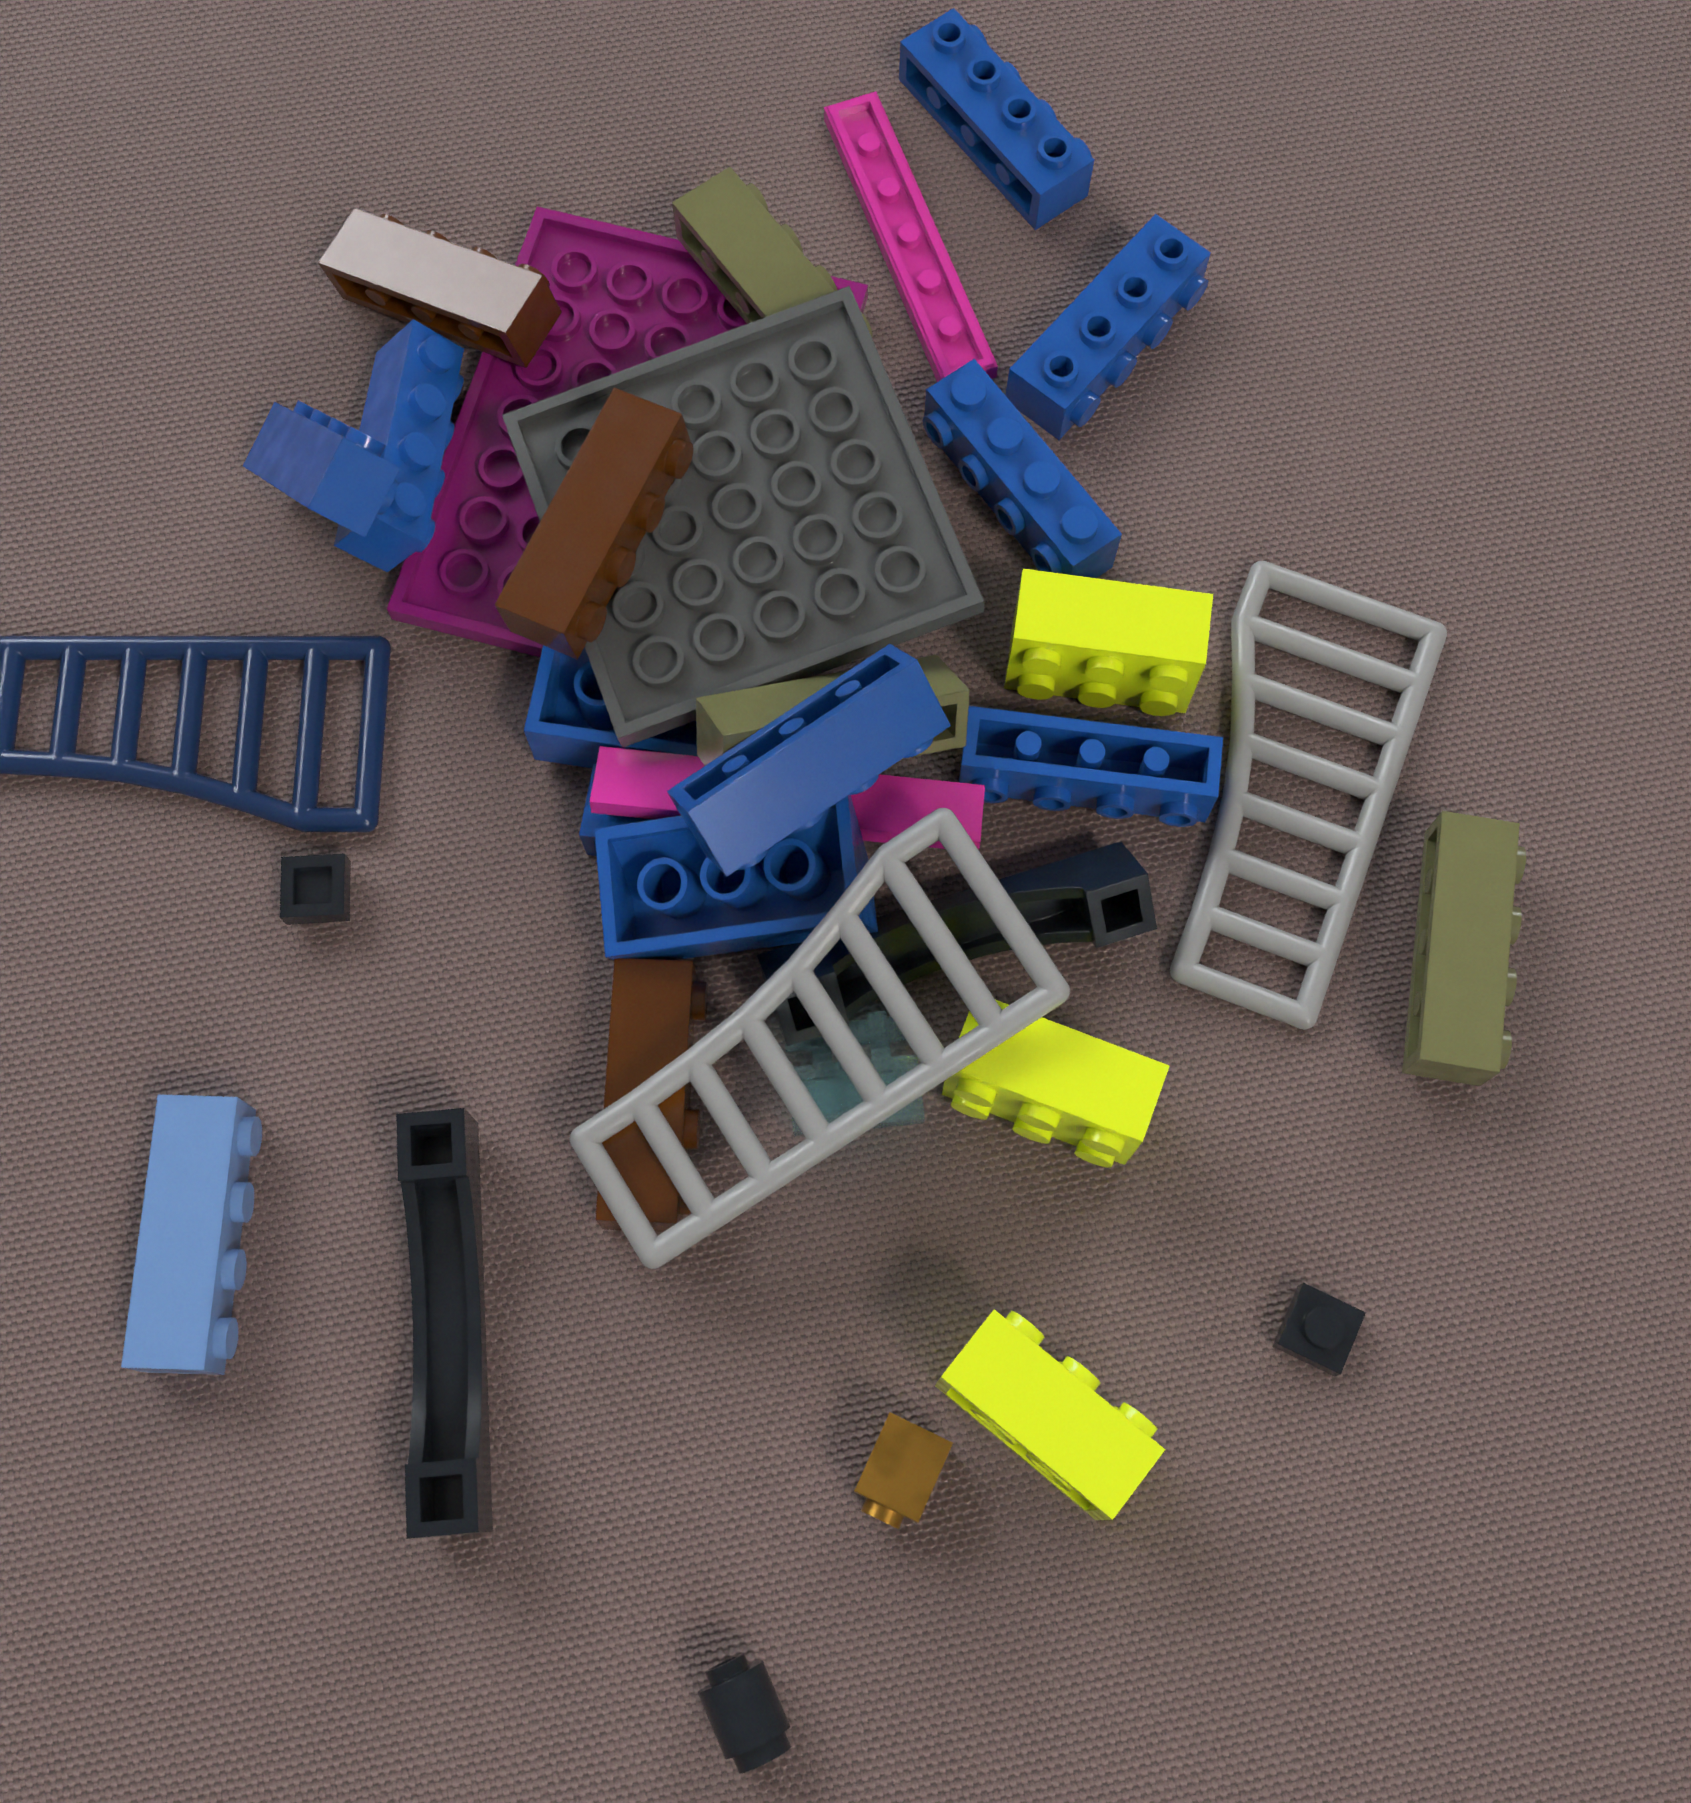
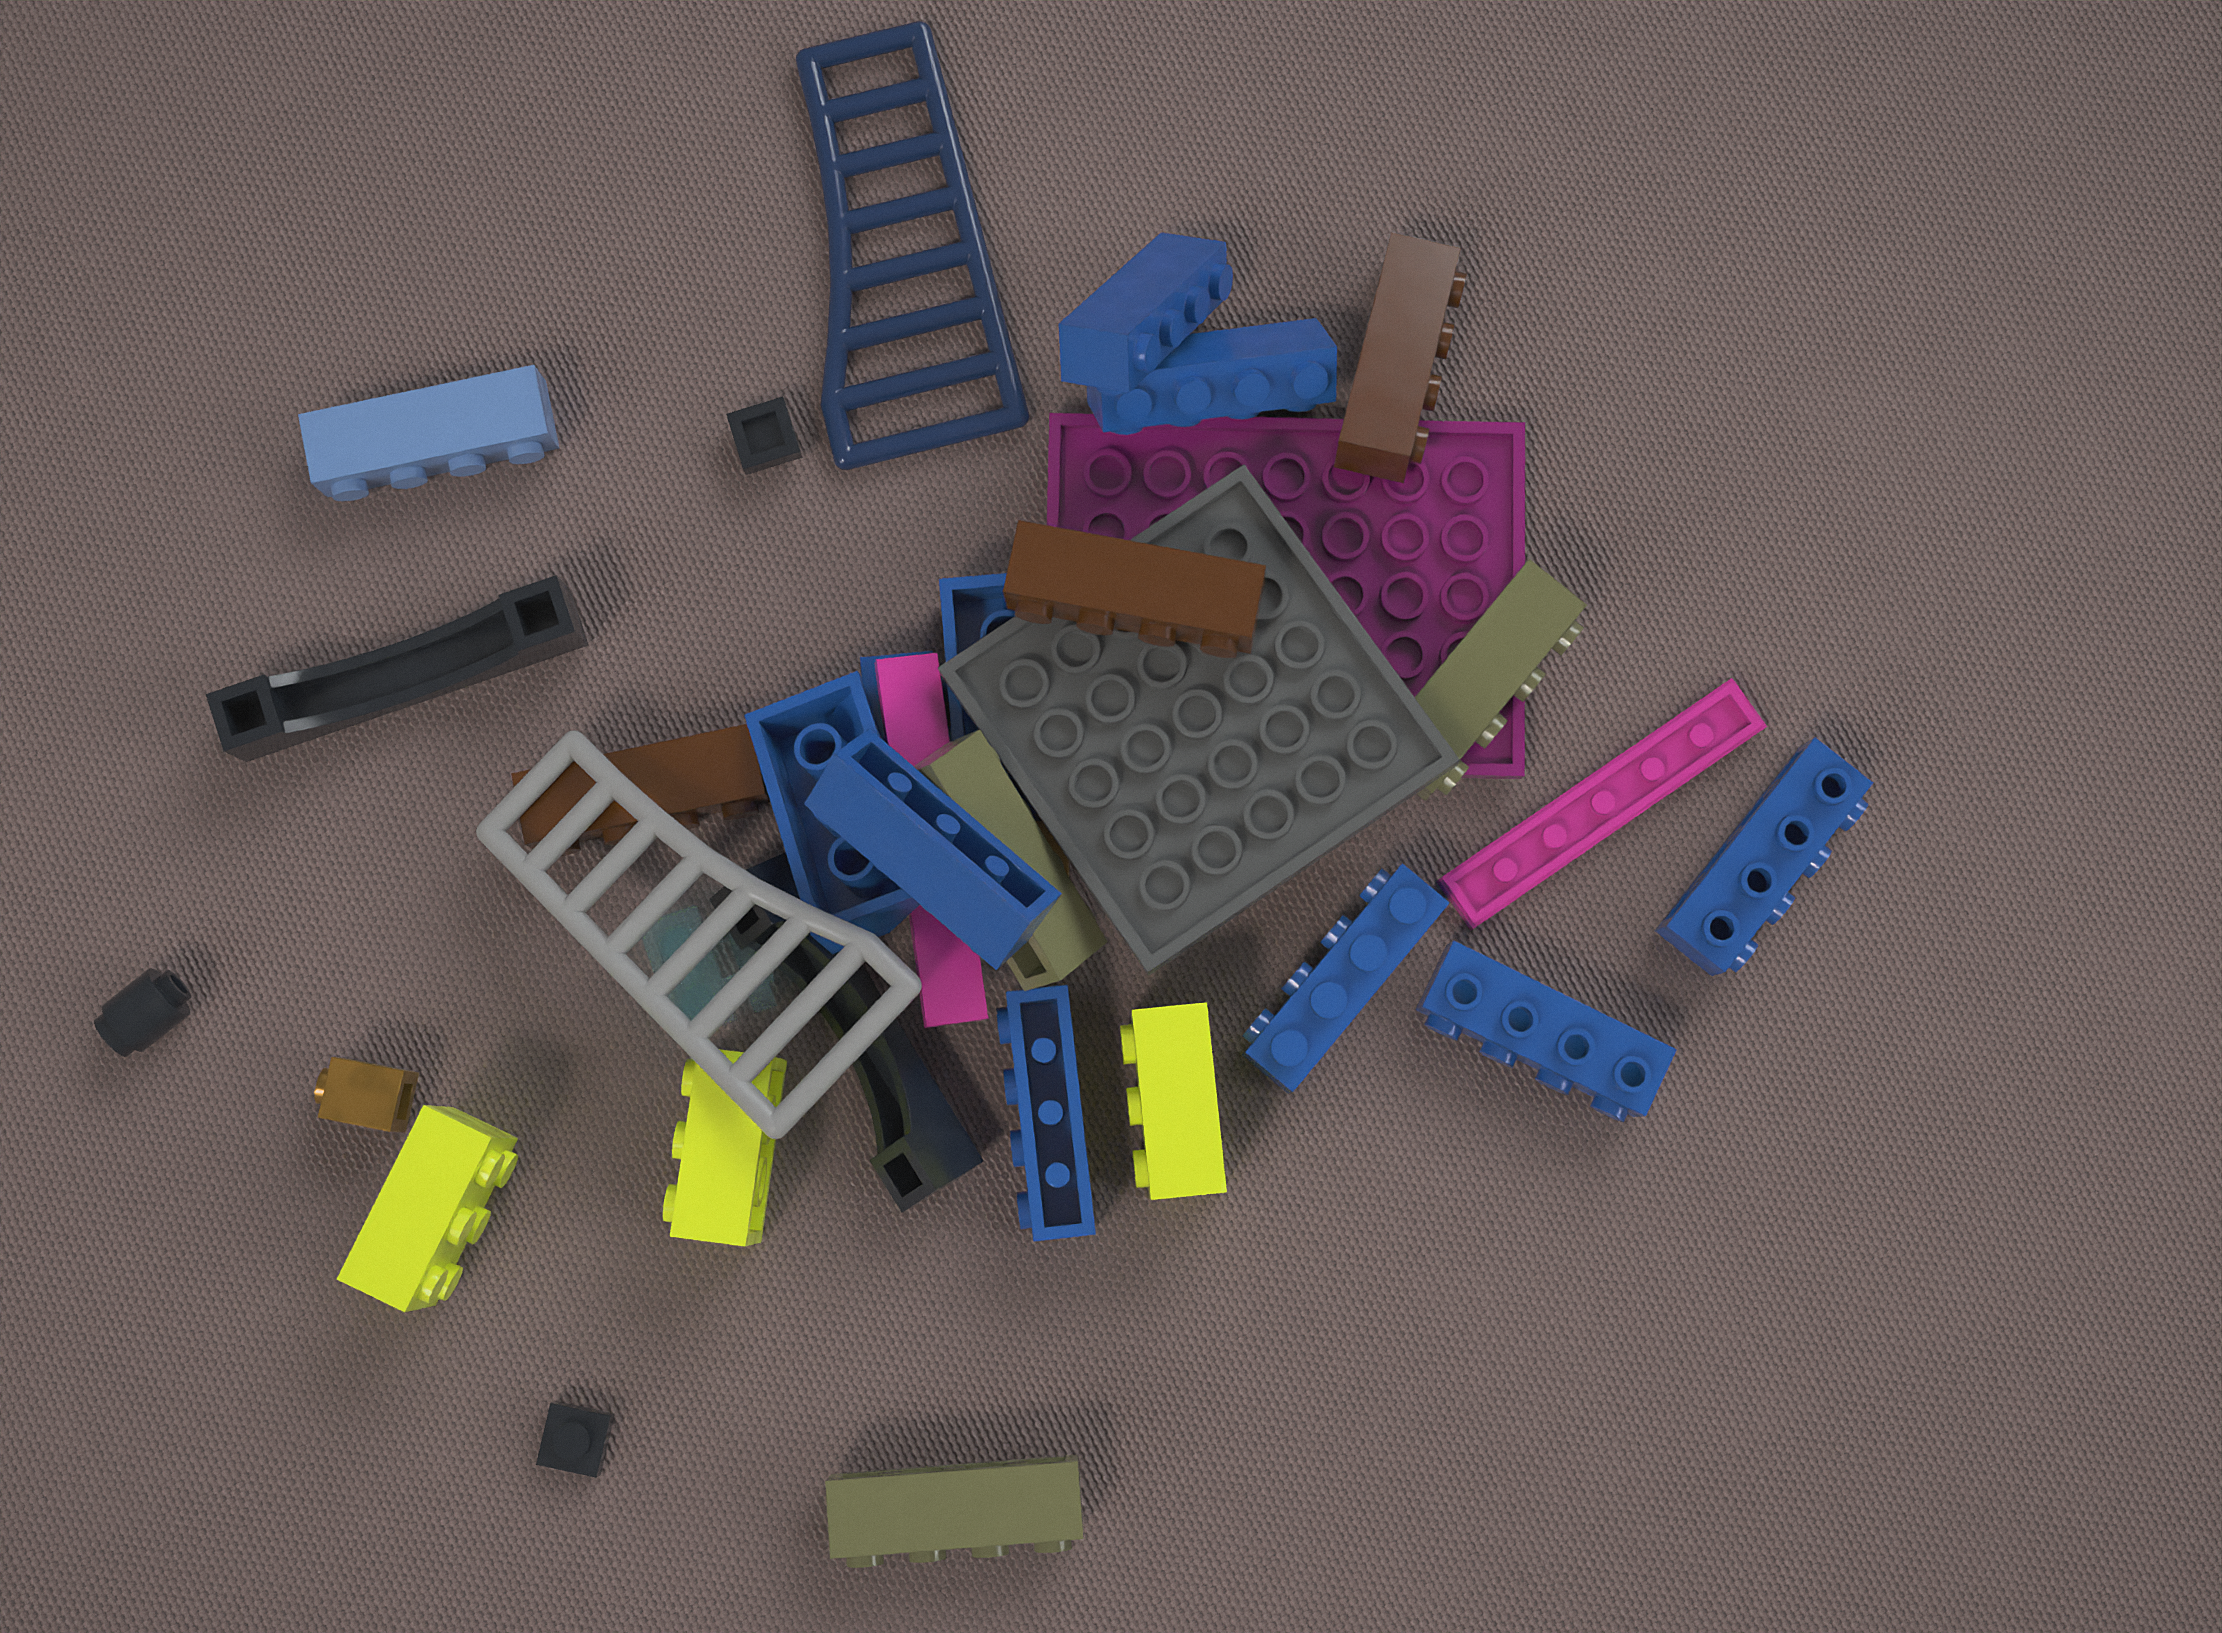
camera: 75 degrees right, 10 degrees up
(1239, 803) = (1124, 1263): light grey bar -> none

